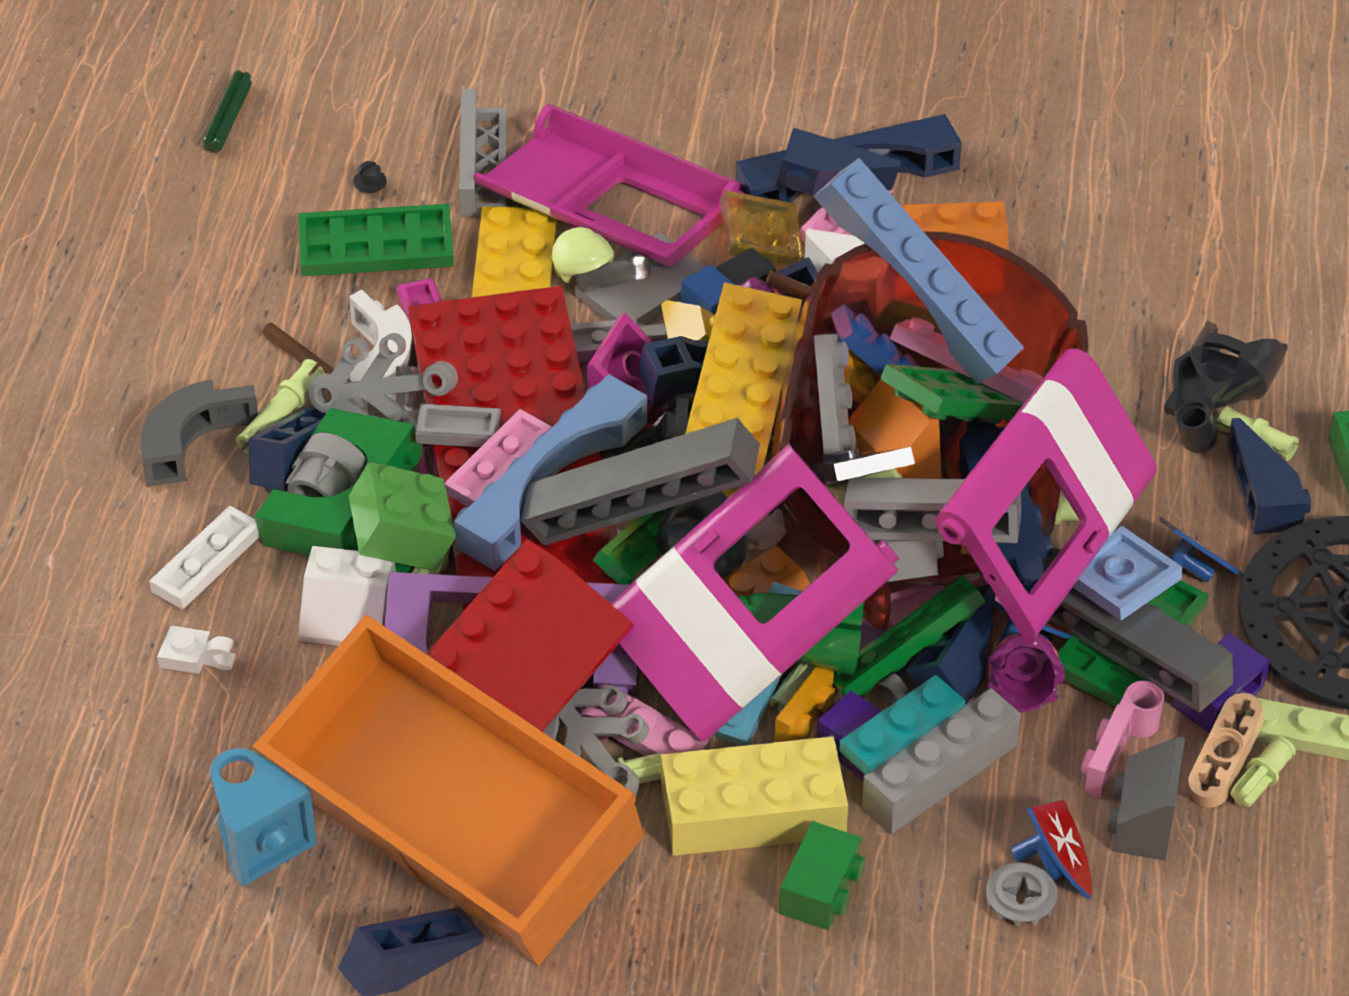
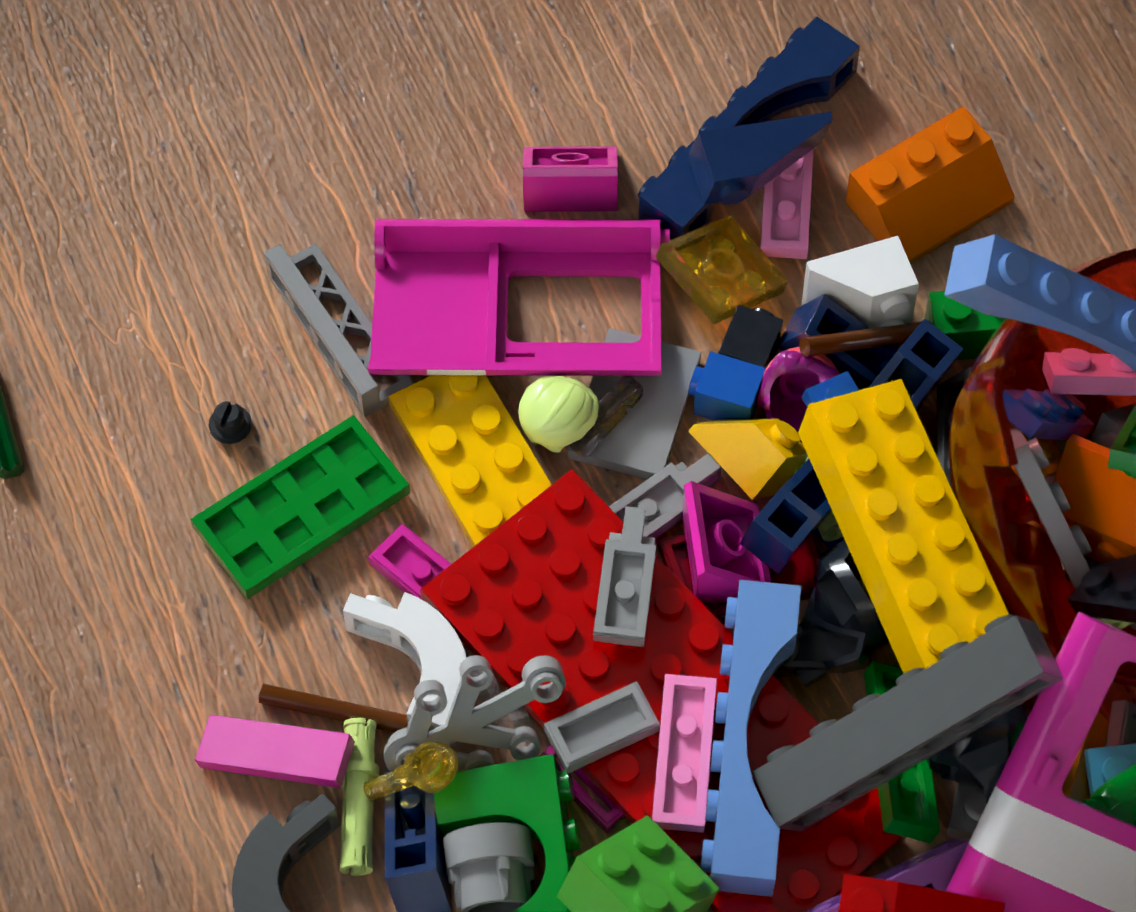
camera: 30 degrees left, 15 degrees up
(247, 356) = (275, 751): none -> tile
(326, 396) = (428, 767): none -> clear yellow plate
(538, 351) = (626, 583): none -> light grey hinge
(702, 142) = (570, 179): none -> dark pink slope

